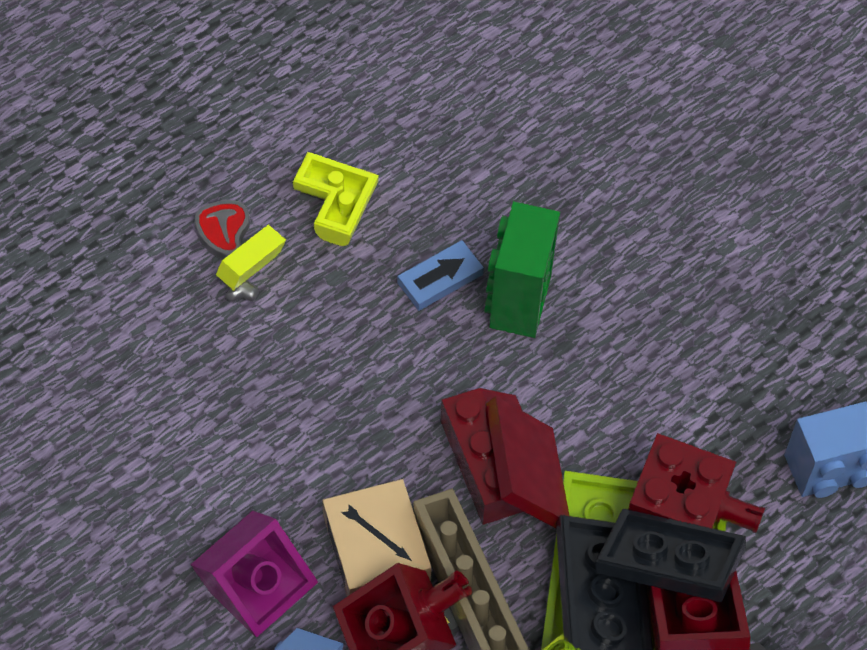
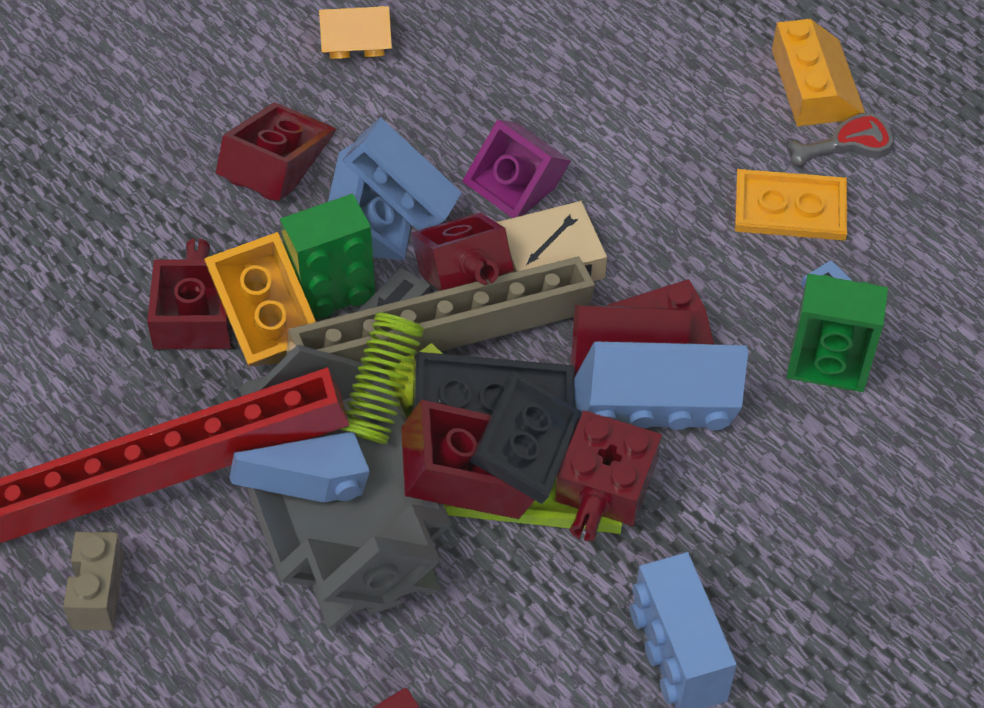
camera: 90 degrees right, 5 degrees down
(136, 261) = (814, 73): none -> light orange slope
(250, 257) = (829, 148): neon yellow piece -> none
(312, 307) = (791, 204): none -> light orange tile
(344, 192) = (913, 217): neon yellow brick -> none
(585, 439) = (663, 383): none -> medium blue slope

